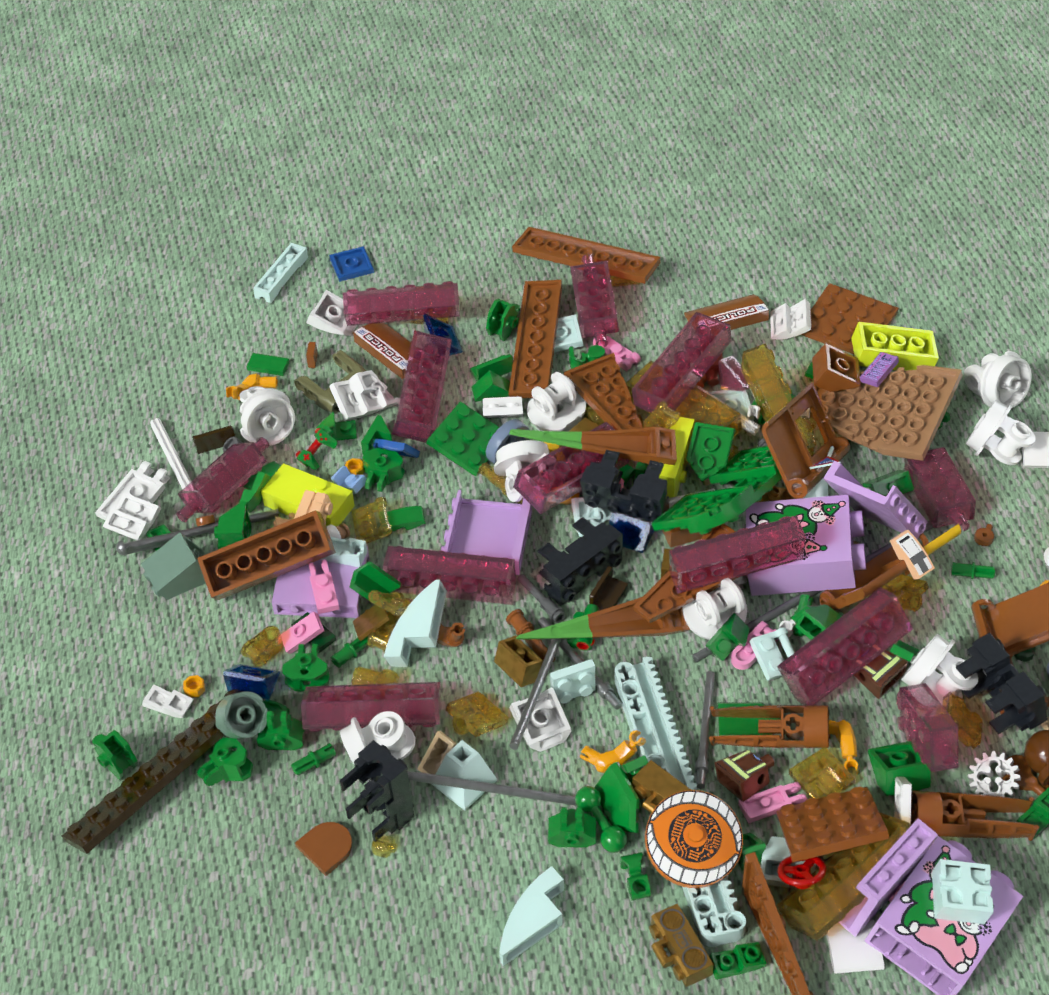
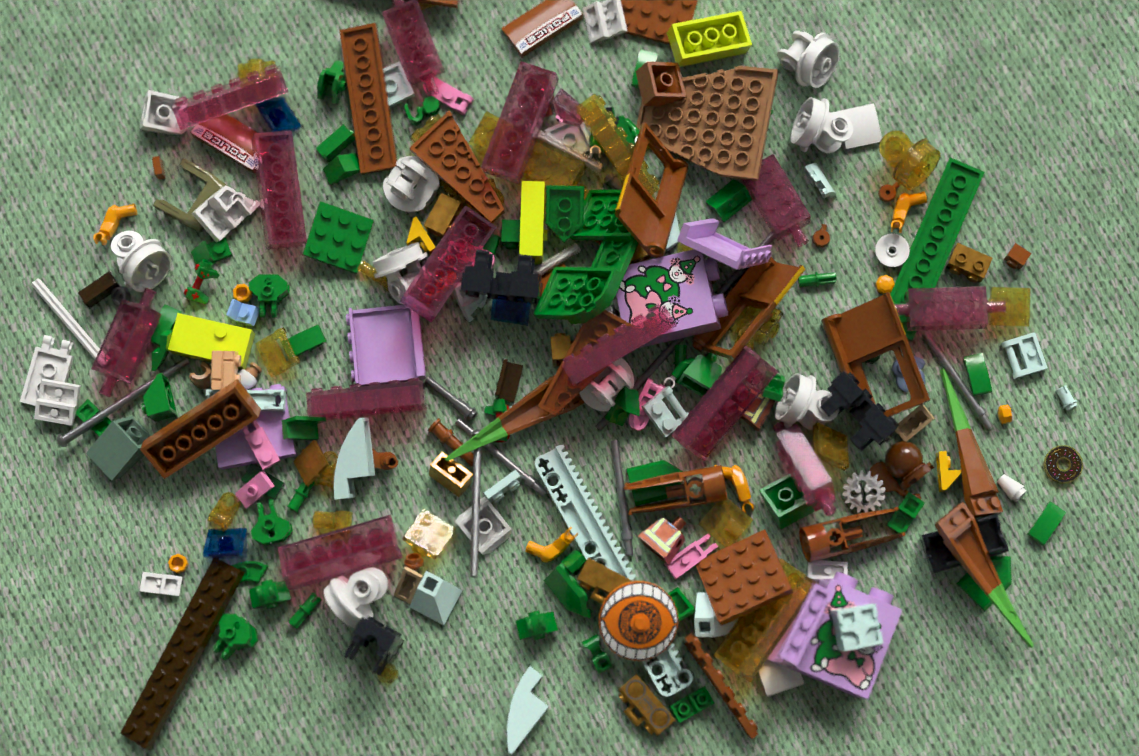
camera: 15 degrees left, 30 degrees up
(114, 753) = (134, 650): green hinge -> none
(205, 520) = (126, 389): dark orange piece -> none
(229, 719) = (234, 596): sand green brick -> none
(268, 364) = (119, 186): green tile -> none
(280, 272) = (92, 66): light aqua piece -> none
(326, 846) = (341, 686): dark orange tile -> none
(351, 263) = (158, 36): blue tile -> none
(377, 430) = (251, 249): green slope -> none
(391, 602) = (330, 447): clear yellow plate -> none
(401, 448) = (275, 267): blue tile -> none
(452, 734) = (413, 561): none -> dark orange plate
(492, 788) = (389, 619): flat silver bar -> none
(502, 407) = (360, 193): white bracket -> none
(502, 438) = (378, 240): sand blue wheel -> none
(587, 556) = (486, 349): black piece -> none
(613, 837) = (571, 623): green piece -> none
(632, 444) = (501, 230): dark orange plate -> none
(662, 416) = (514, 195): clear yellow piece -> none
(801, 873) = (733, 637): red piece -> none
(827, 461) = (673, 206): piece -> none
(879, 369) = (700, 76): medium lavender tile -> none
(902, 802) = (796, 543): white tile -> none
(911, 551) = (768, 308): slope -> none
(990, 483) = (818, 179): none -> light aqua slope

